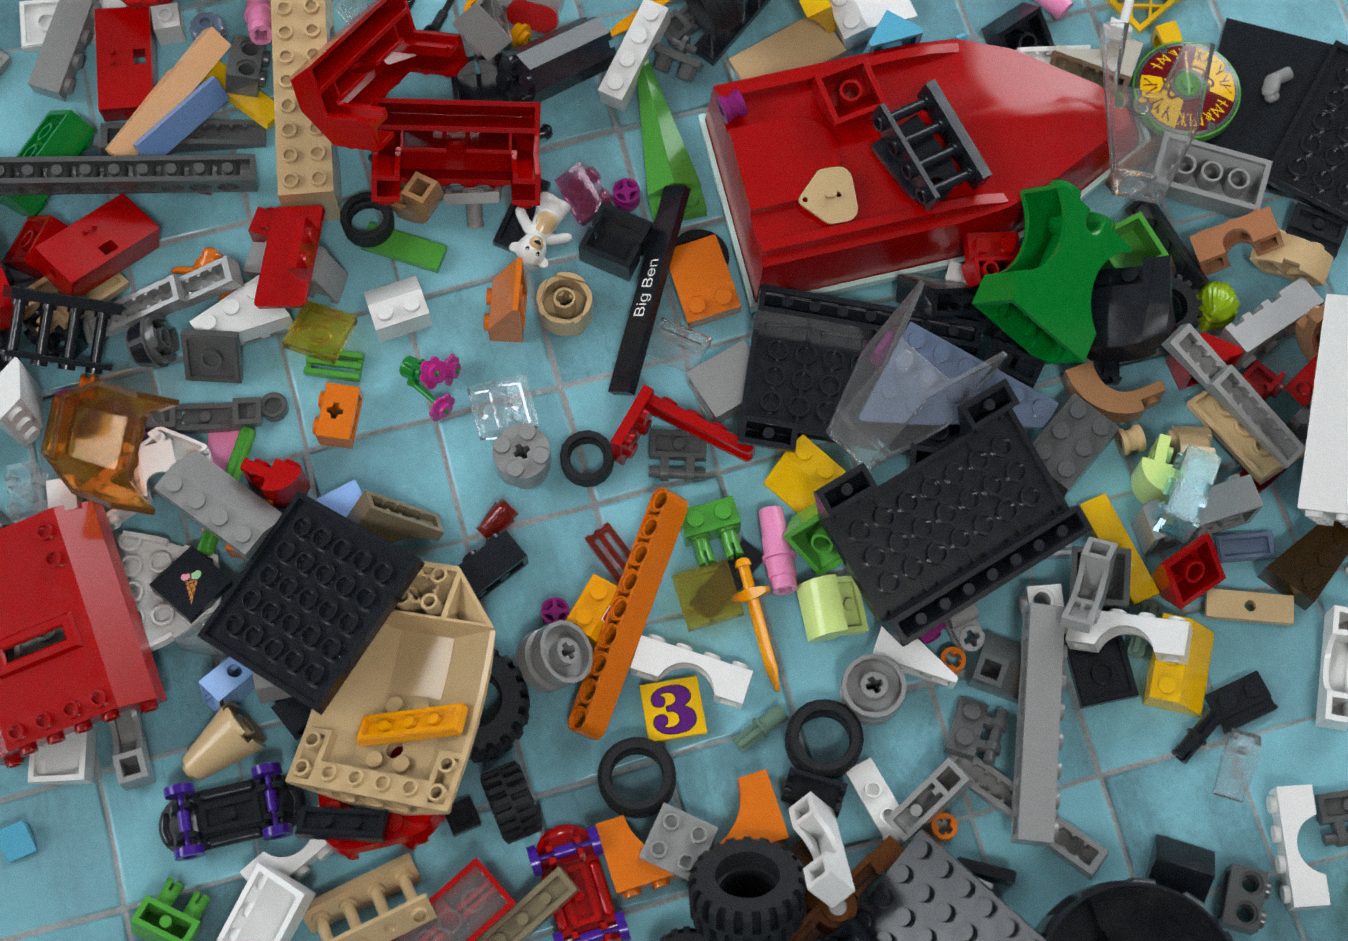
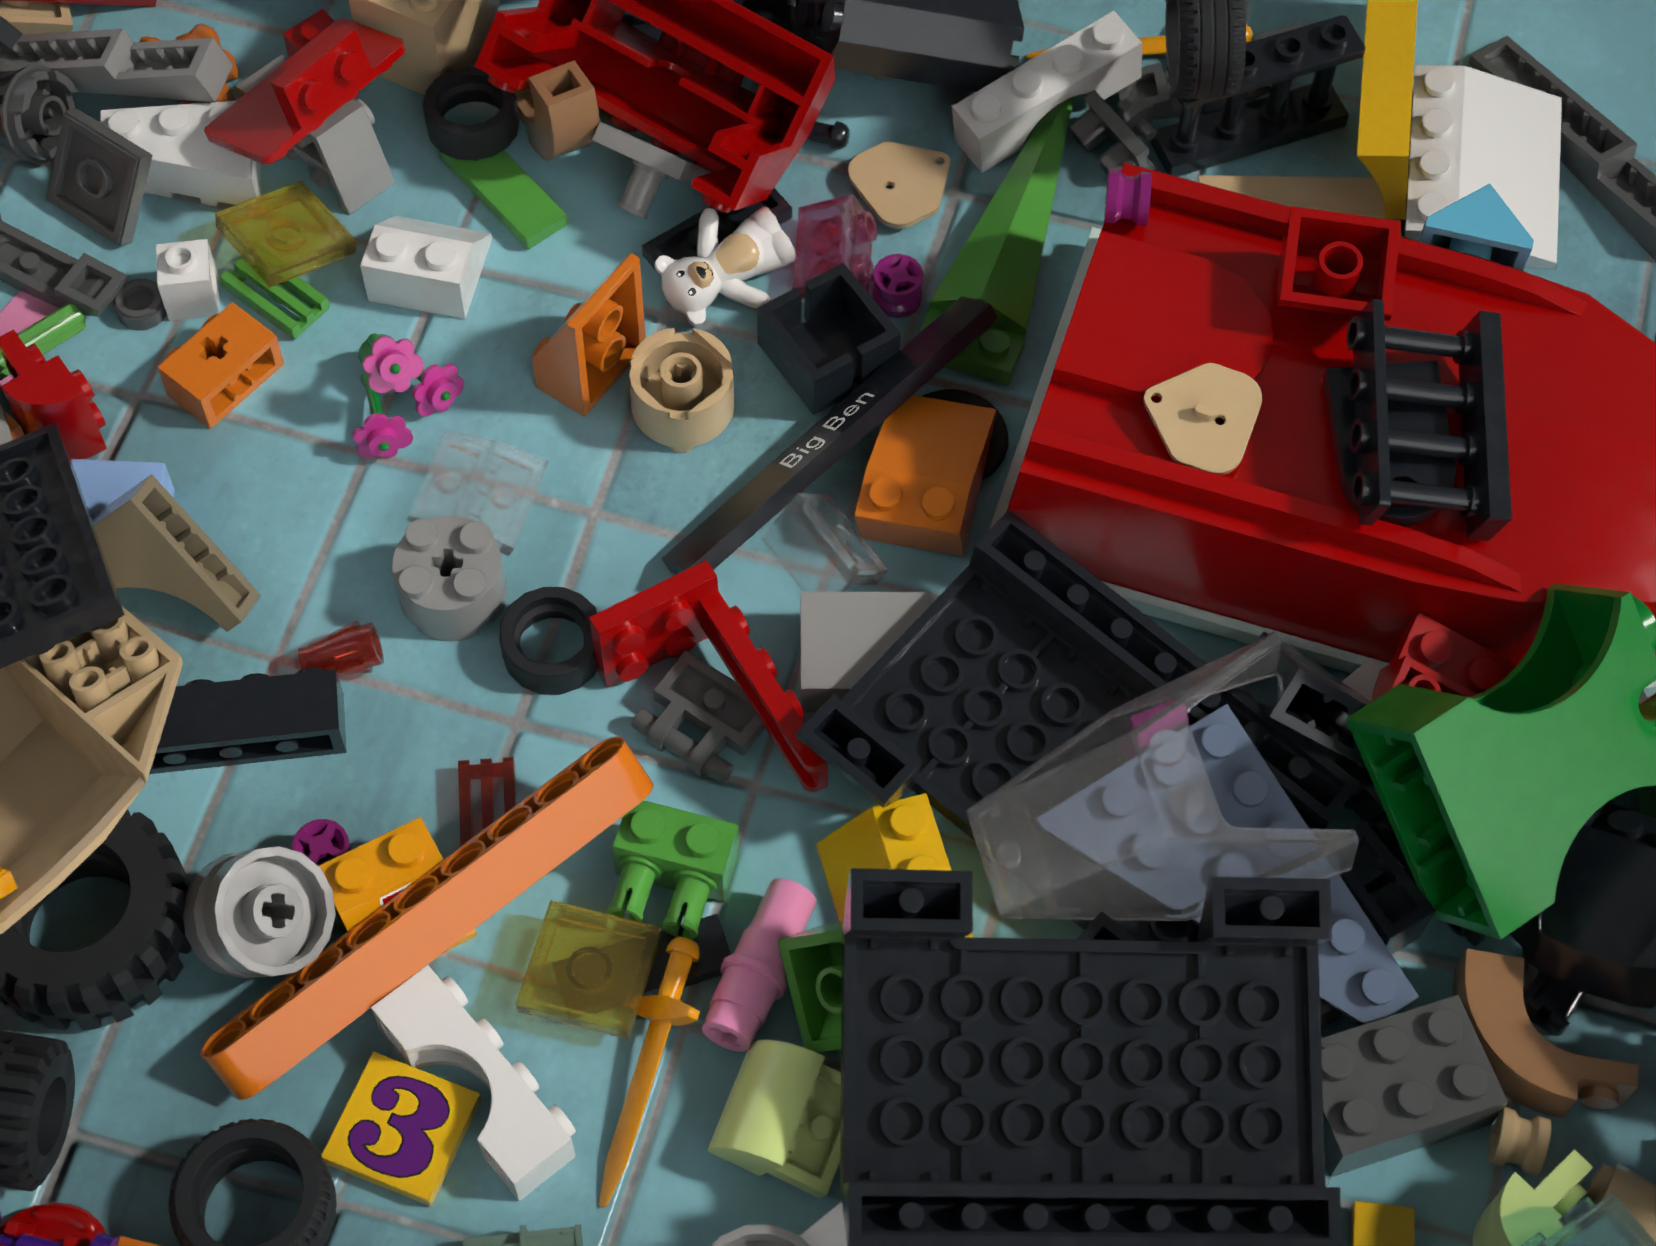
camera: 30 degrees right, 10 degrees down
(292, 382) = (187, 279): none -> white brick
(596, 133) = (915, 181): none -> tan piece

